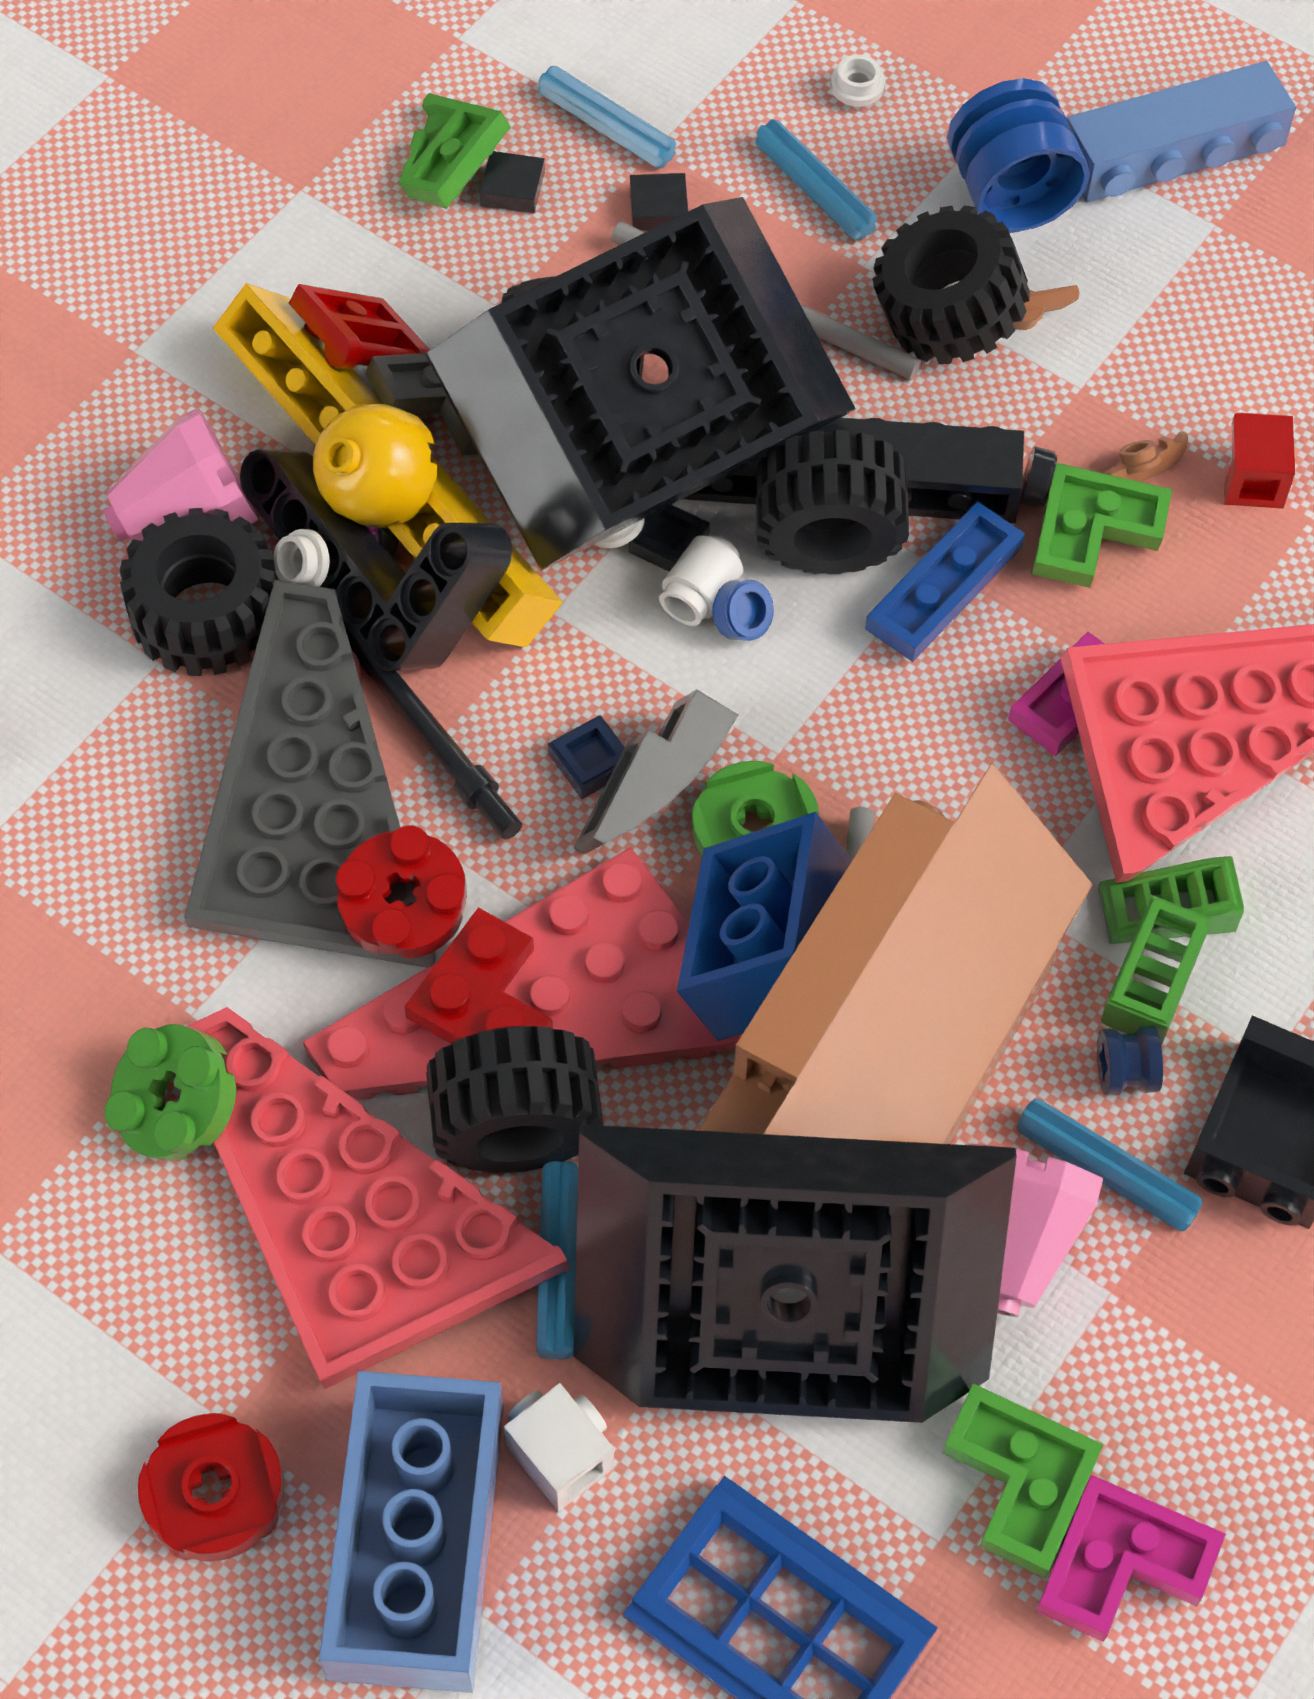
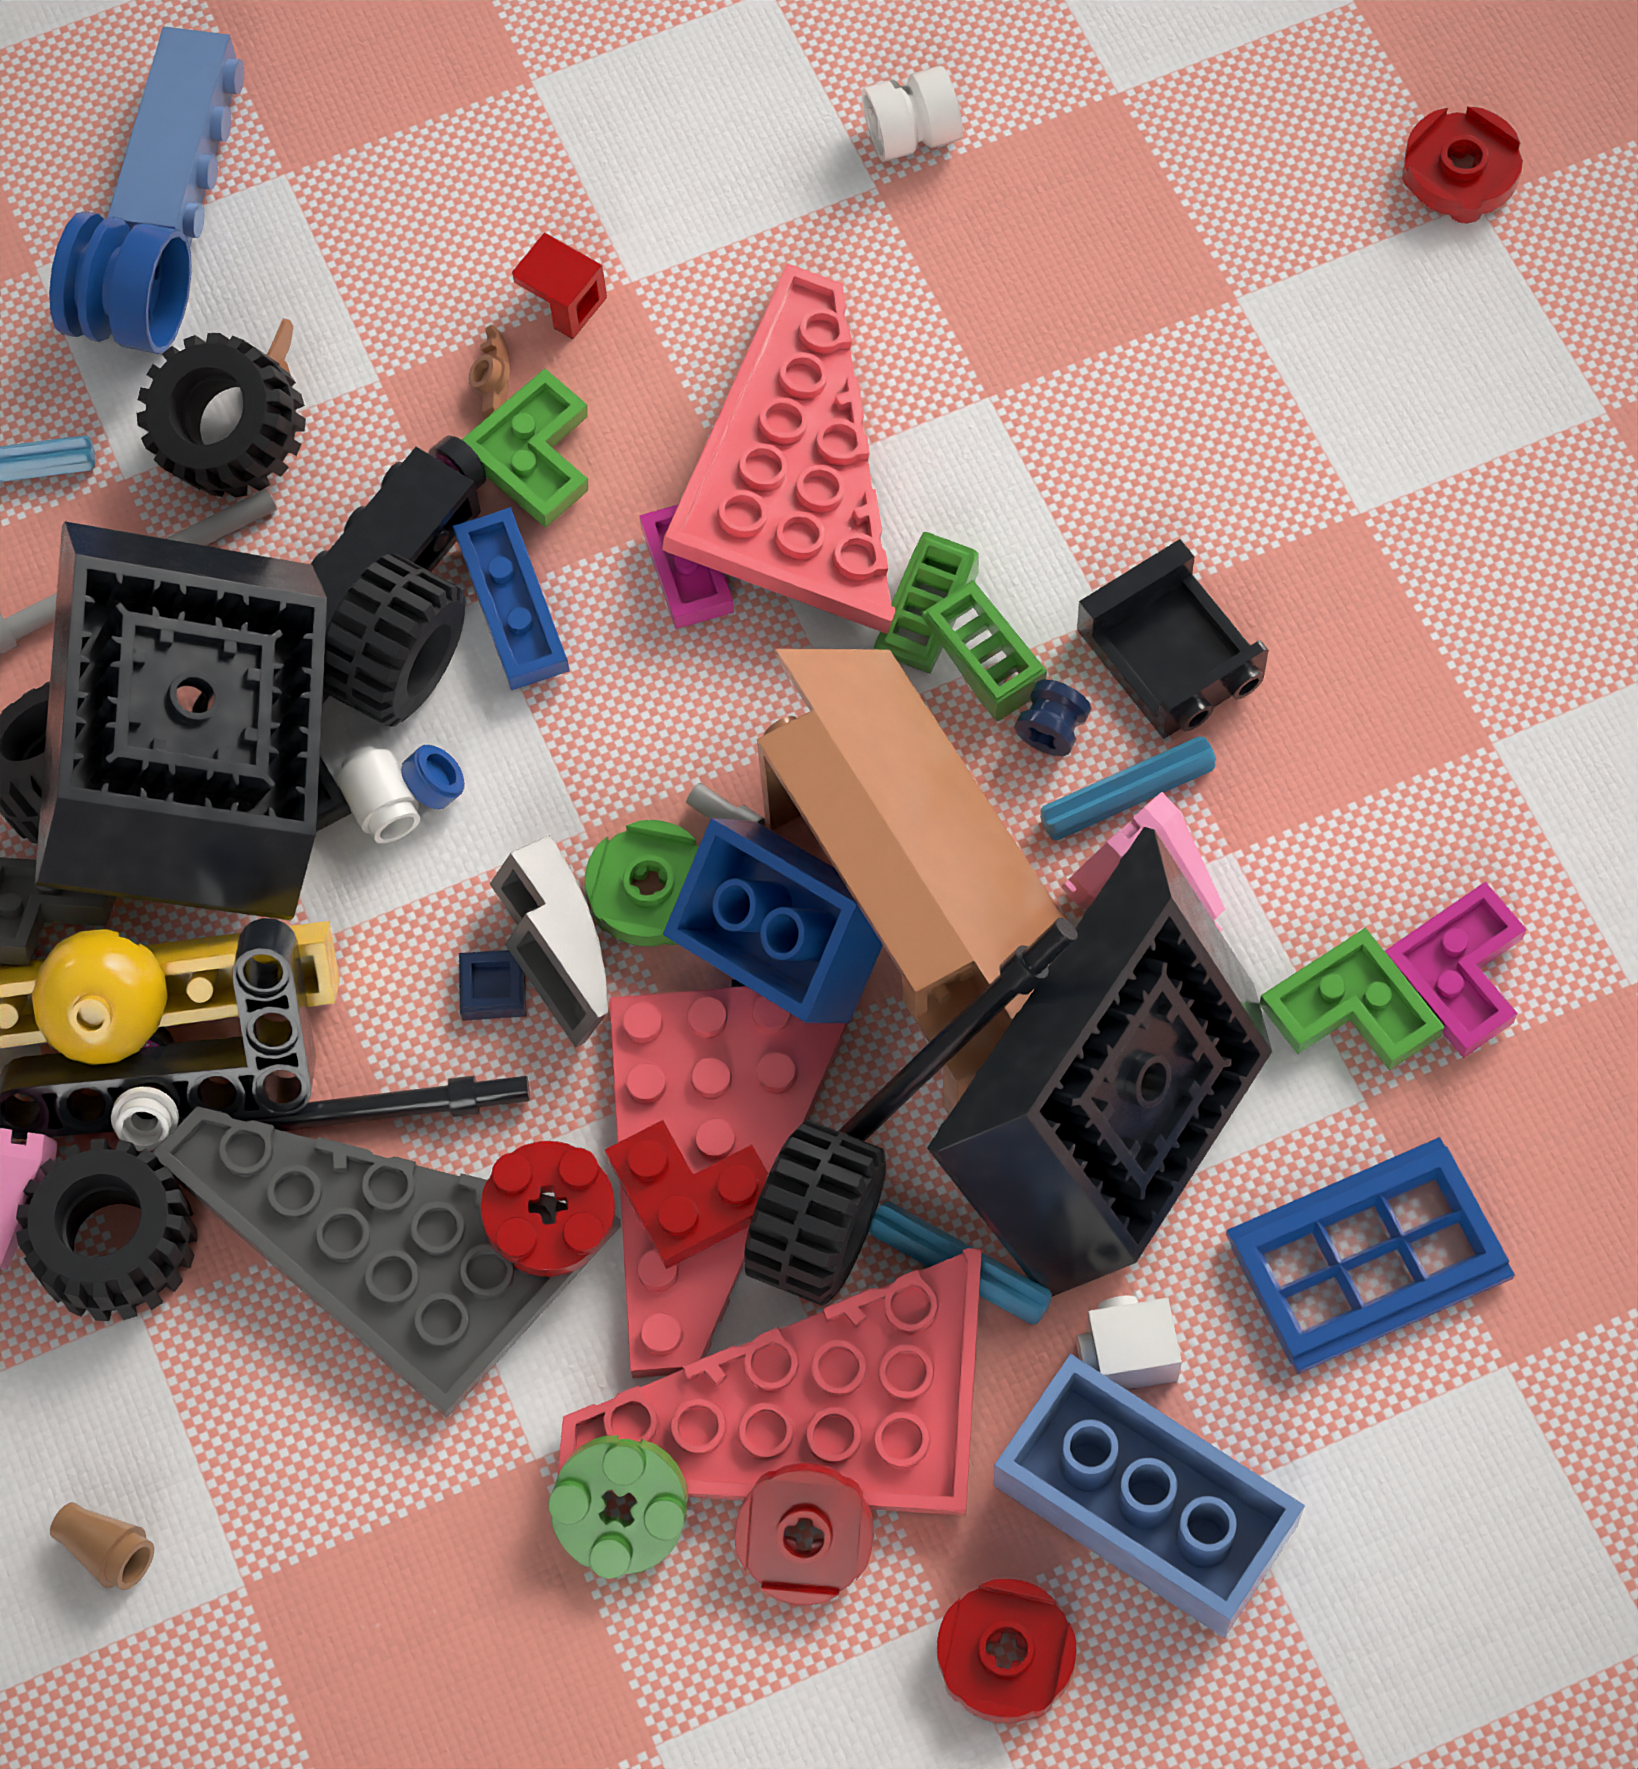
camera: 55 degrees left, 5 degrees up
(258, 1259) = (833, 1505): none -> red plate
(791, 1112) = (1018, 975): none -> black bar

